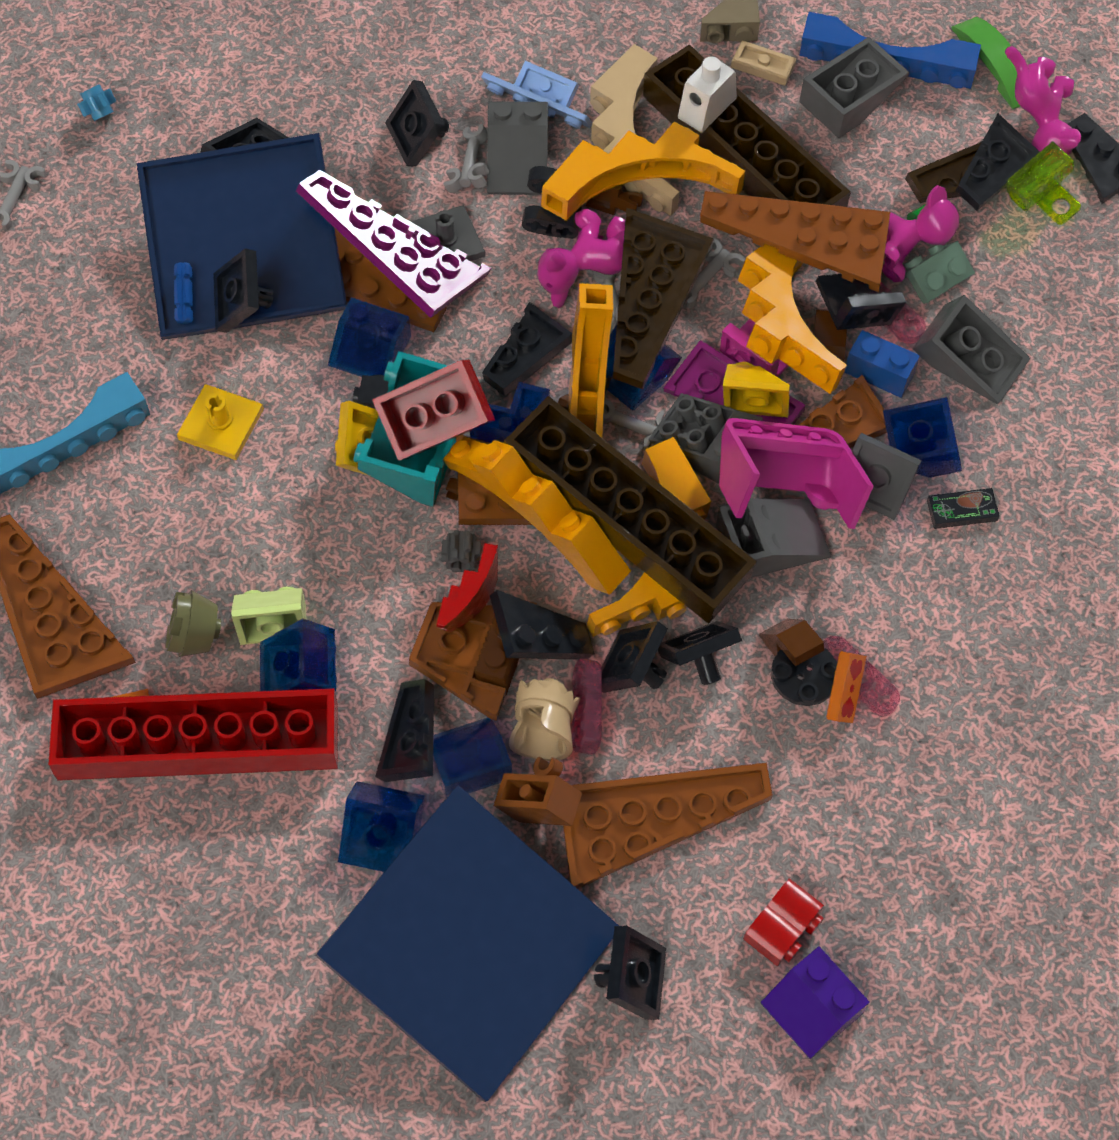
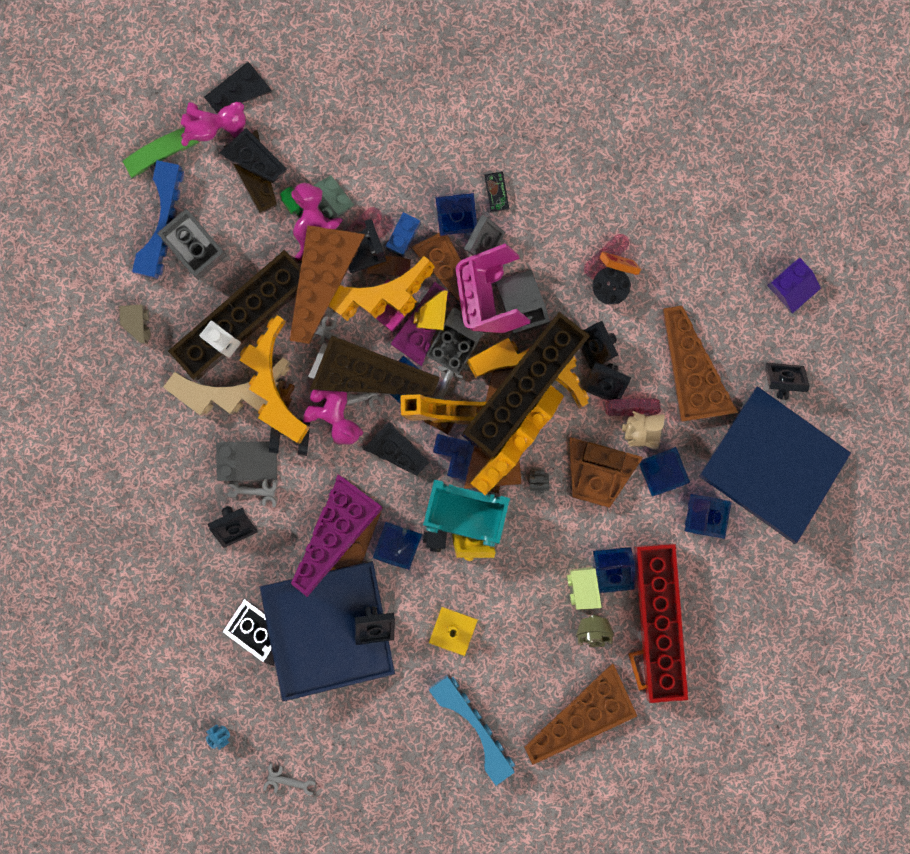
camera: 90 degrees left, 25 degrees up
(183, 293) = (368, 662): blue axle -> none
(410, 734) = (655, 504): black wing -> none
(433, 409) = (463, 501): brick -> none
(454, 231) = (310, 501): dark grey tile -> none
(473, 593) = (583, 477): red slope -> none
(537, 631) = (595, 434): black wing -> none
(539, 796) = (693, 431): dark orange brick -> none
(541, 85) = (198, 446): light blue bracket -> none
(763, 63) = (168, 302): tan plate -> none
(784, 922) = (753, 300): red brick -> none
(794, 638) = (591, 292): reddish brown slope -> none
(971, 350) = (390, 180): dark grey slope -> none
(1041, 181) = (265, 128): clear neon green piece -> none

